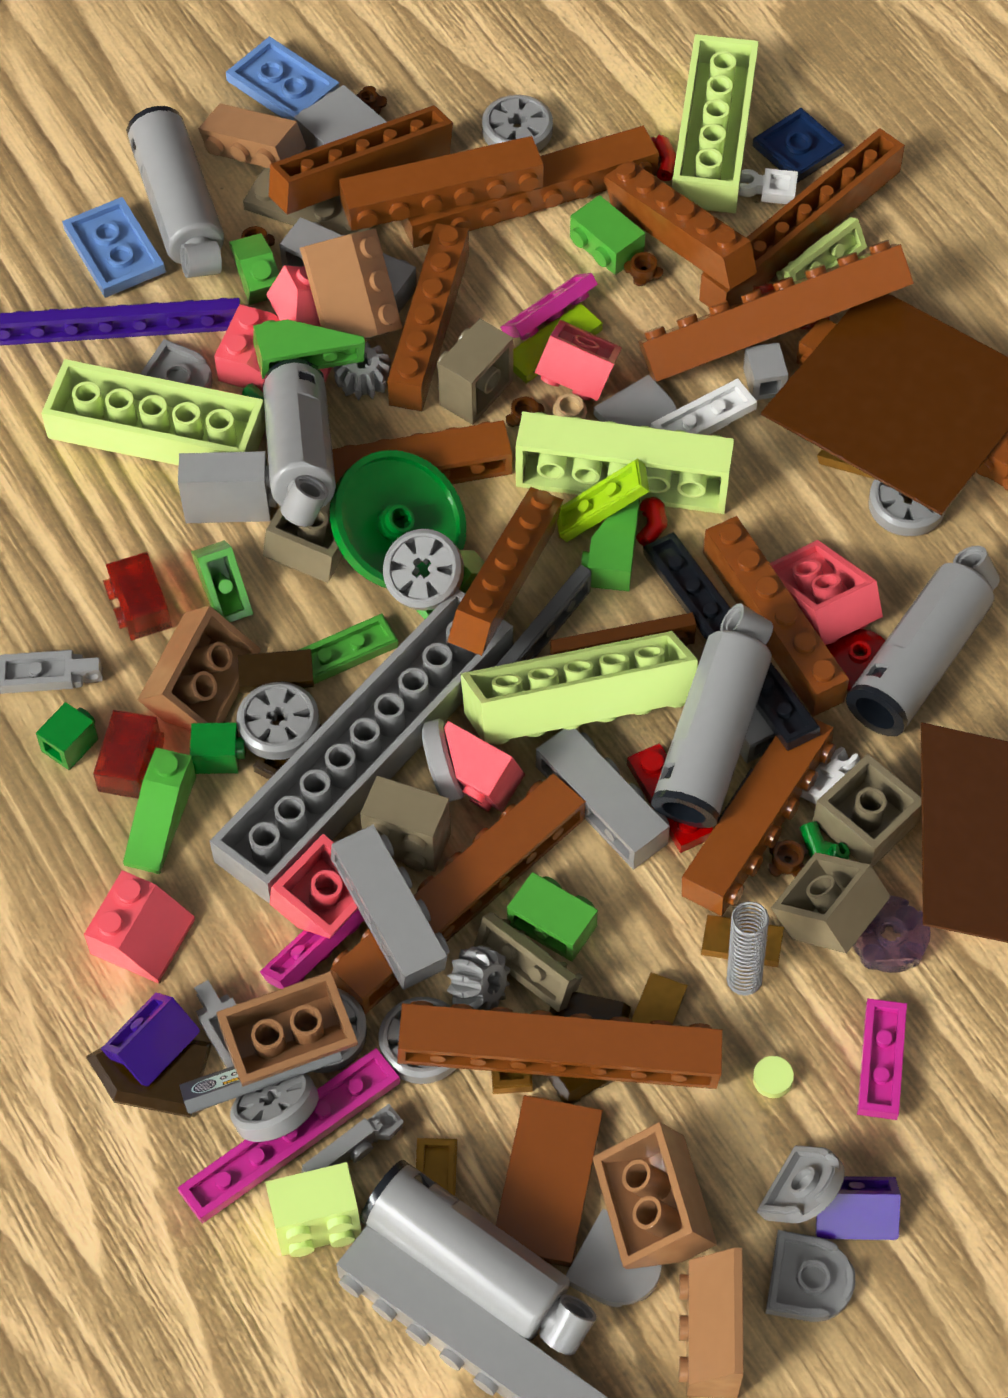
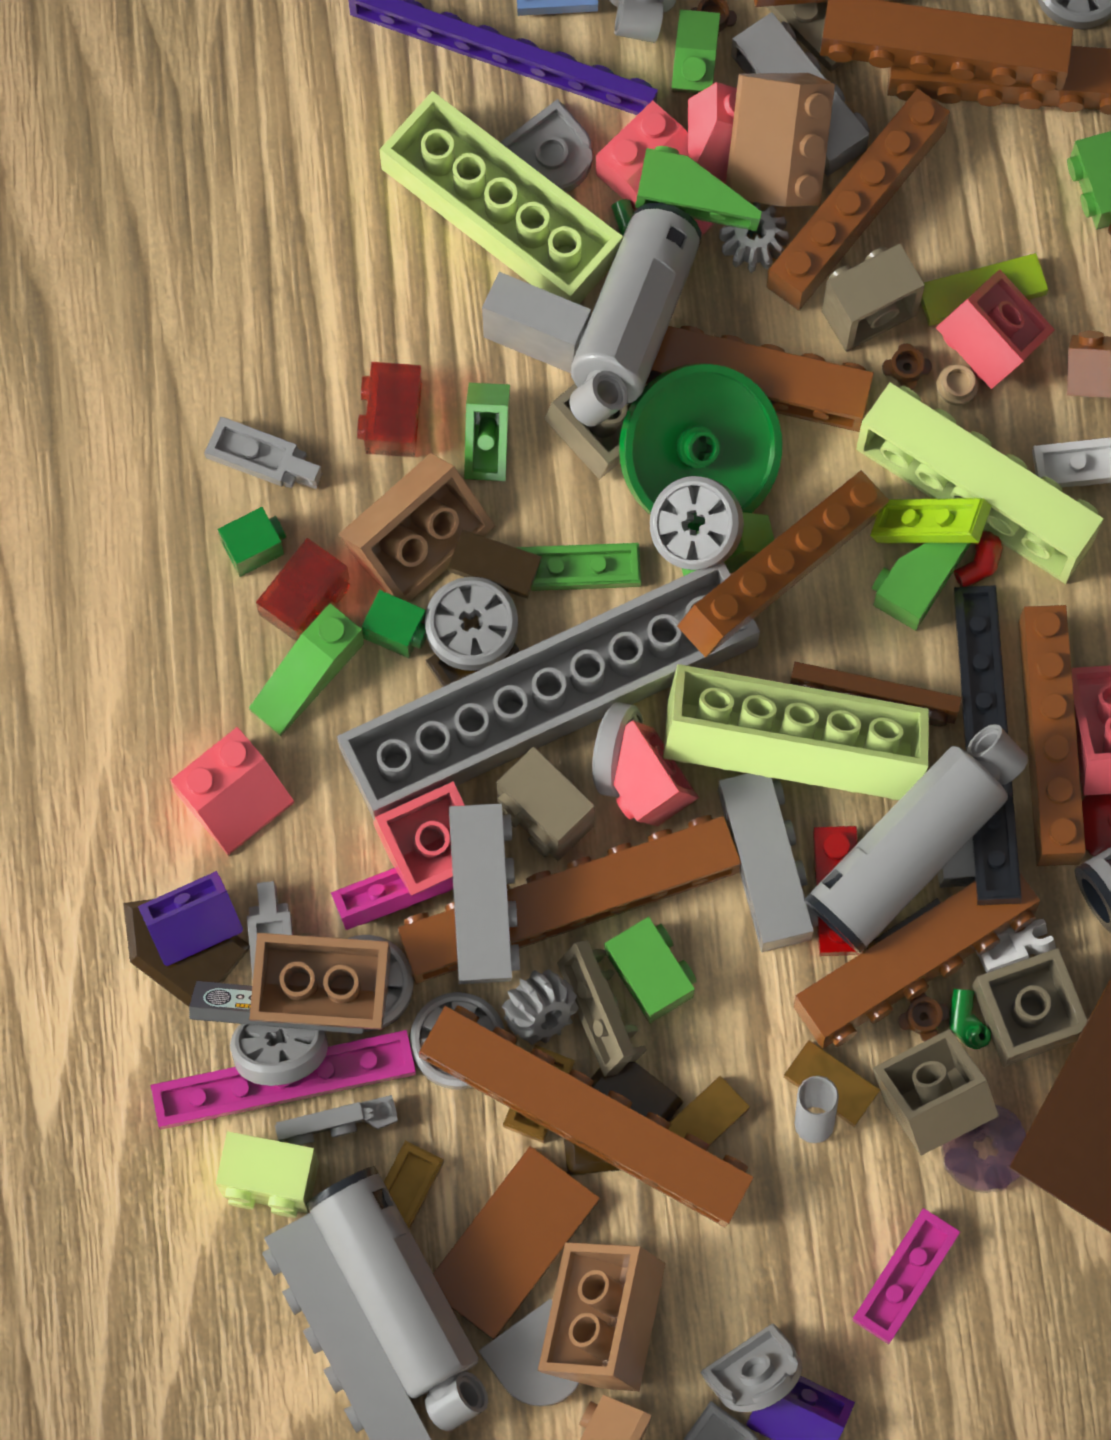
camera: 25 degrees right, 15 degrees up
(550, 306) = (998, 243): dark pink plate -> none
(551, 618) = (804, 635): dark grey tile -> none
(636, 404) = (1030, 417): light grey tile -> none
(773, 1077) = (788, 1241): yellowish green tile -> none

